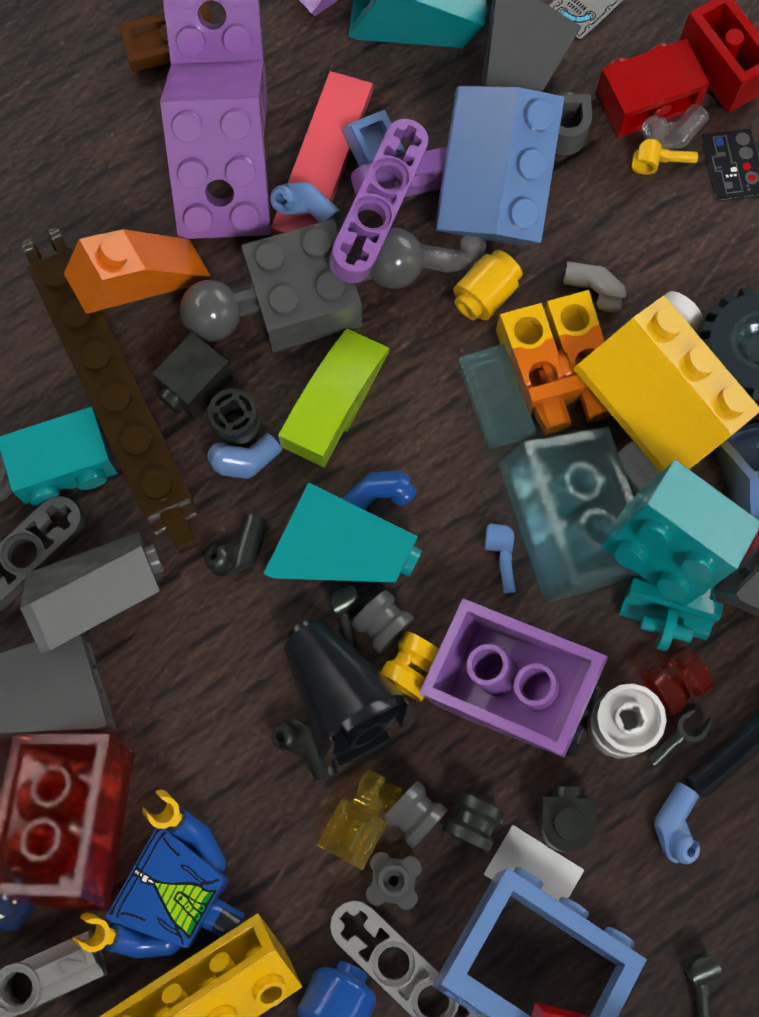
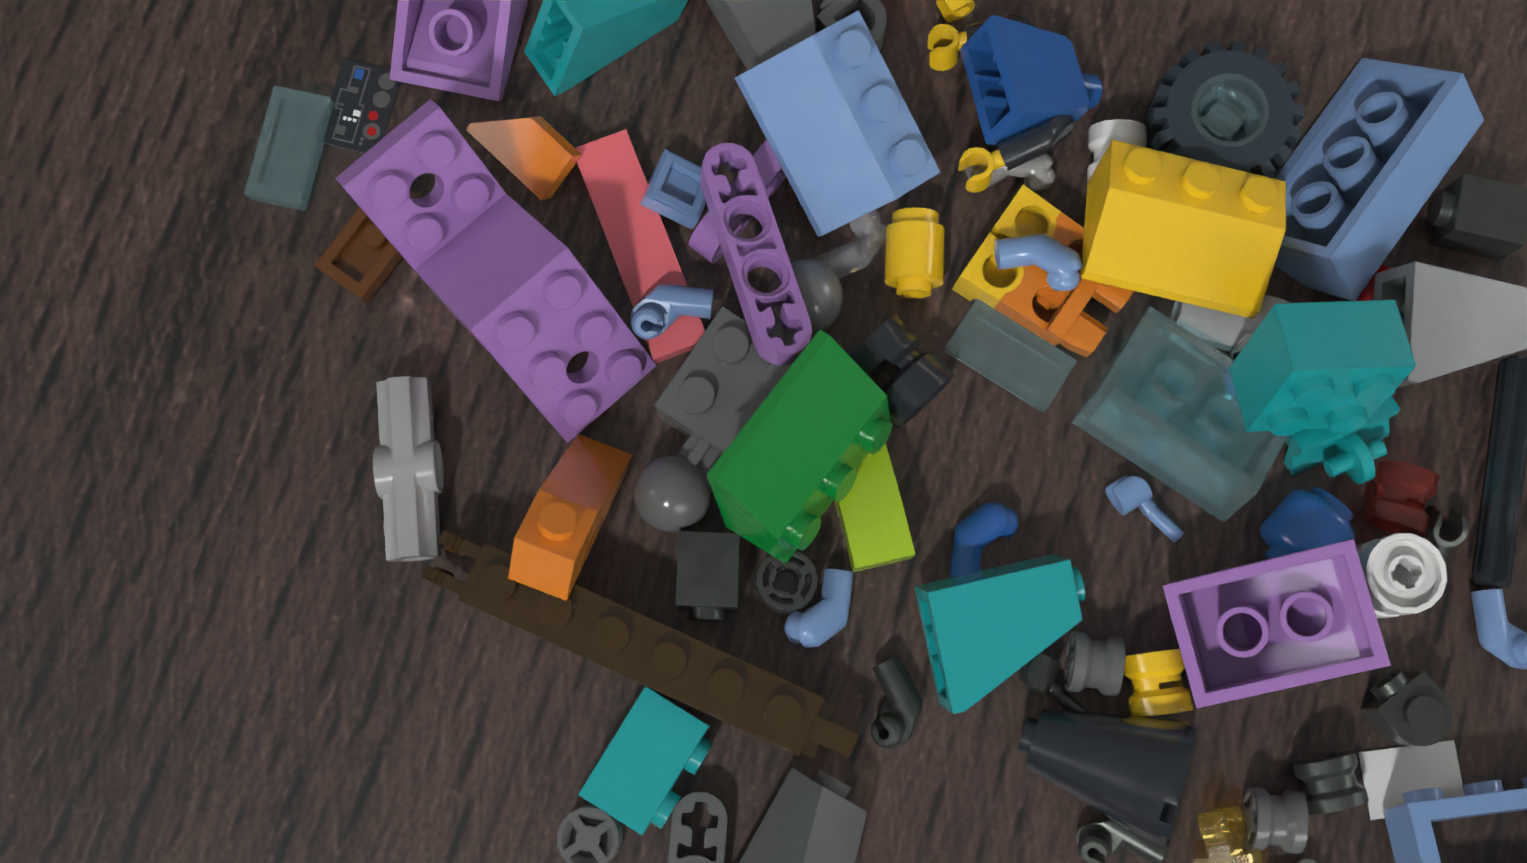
camera: 40 degrees left, 5 degrees up
(71, 180) = (408, 469): none -> light grey piece
(302, 329) = (800, 450): none -> green slope
(303, 54) = (529, 151): none -> orange tile
(412, 346) = (920, 375): none -> black wheel
(563, 337) = (1044, 252): none -> medium blue arm
(604, 637) = (1306, 522): none -> blue head
(639, 236) = (1022, 89): none -> blue torso

